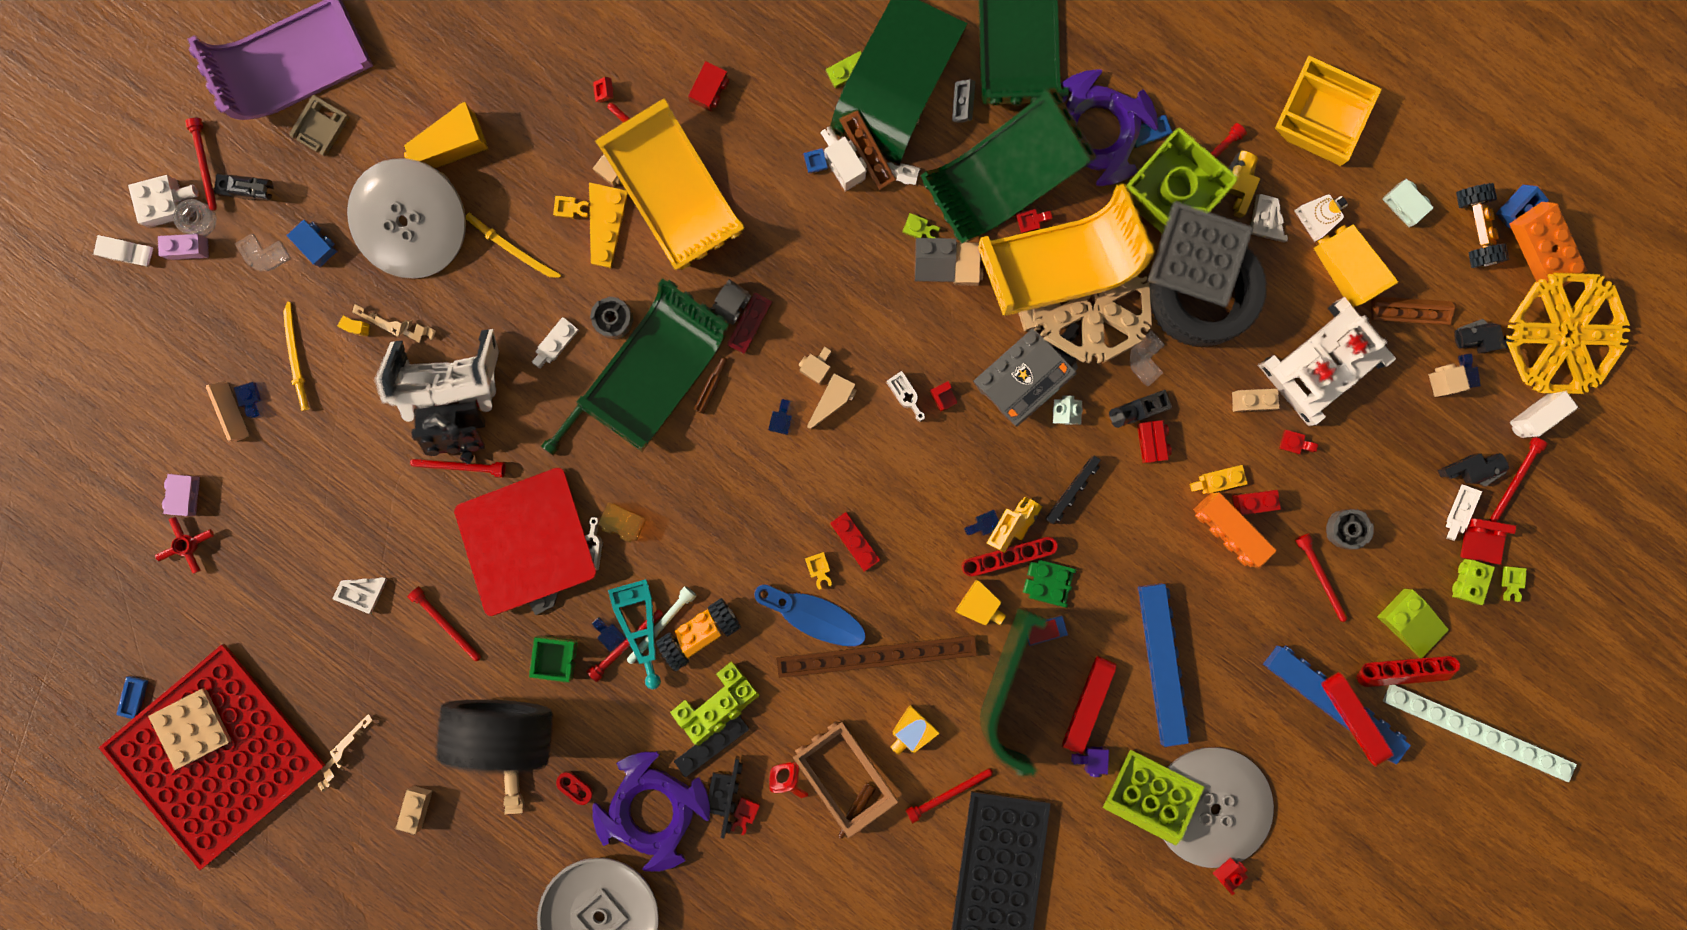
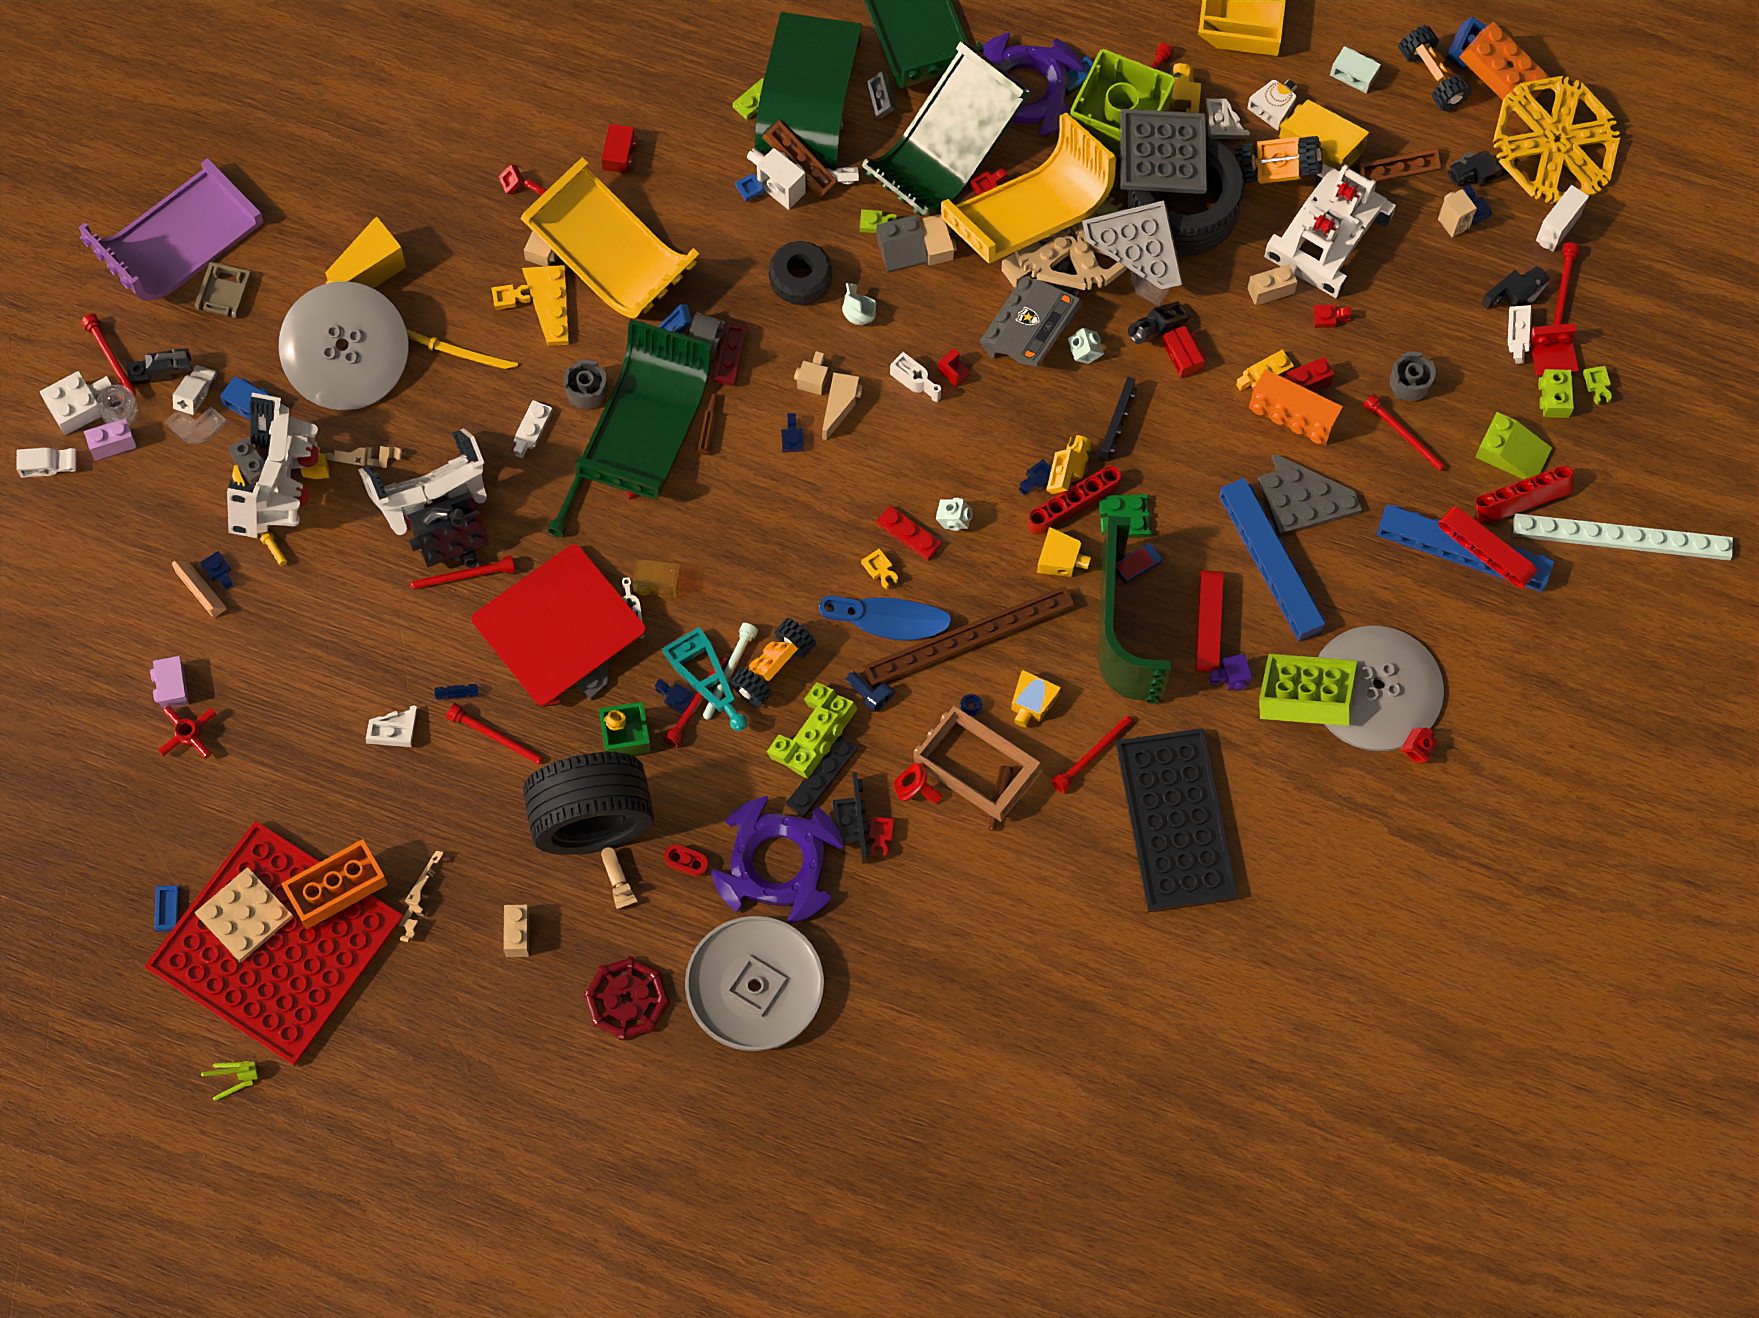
camera: 20 degrees left, 20 degrees down
(160, 864) = (245, 1071): none -> lime plant
(267, 219) = (193, 389): none -> white piece
(268, 730) = (314, 892): none -> orange brick
(299, 307) = (247, 460): none -> dark grey brick
(319, 315) = (275, 494): none -> white container
(423, 574) = (456, 691): none -> clear blue axle
(486, 904) = (631, 1010): none -> dark red plate
(549, 649) = (615, 720): none -> yellow plate
(707, 283) = (678, 320): none -> blue tile
(776, 689) = (874, 699): none -> dark blue piece
(829, 244) = (800, 255): none -> black tyre
(858, 725) = (971, 698): none -> clear blue plate
(877, 312) = (858, 308): none -> light aqua hat
(899, 540) = (954, 514): none -> light aqua brick
(1149, 334) = (1139, 240): none -> light grey plate
(1211, 612) = (1304, 498): none -> dark grey wing
(1305, 282) = (1280, 159): none -> plate

